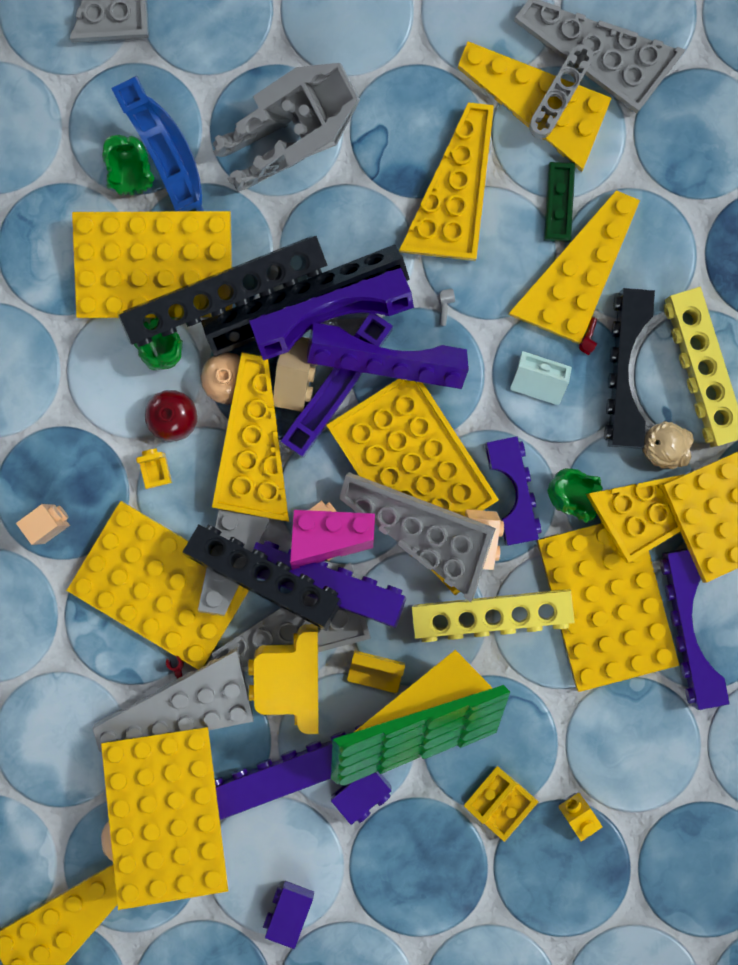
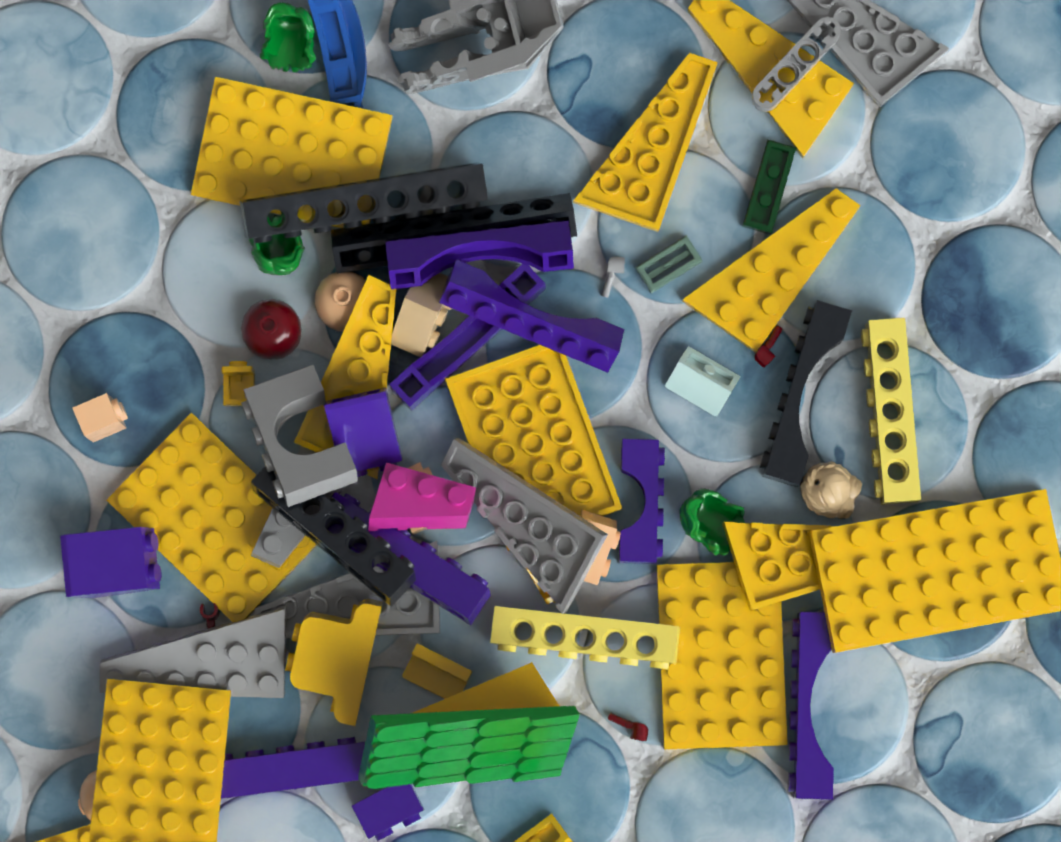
camera: 15 degrees right, 5 degrees down
(80, 645) = (110, 562): none -> dark purple slope
(220, 539) = (296, 475): none -> light grey arch
(268, 486) = (366, 427): none -> dark purple slope
(475, 301) = (675, 274): none -> sand green tile
(553, 680) = (638, 730): none -> dark red hand

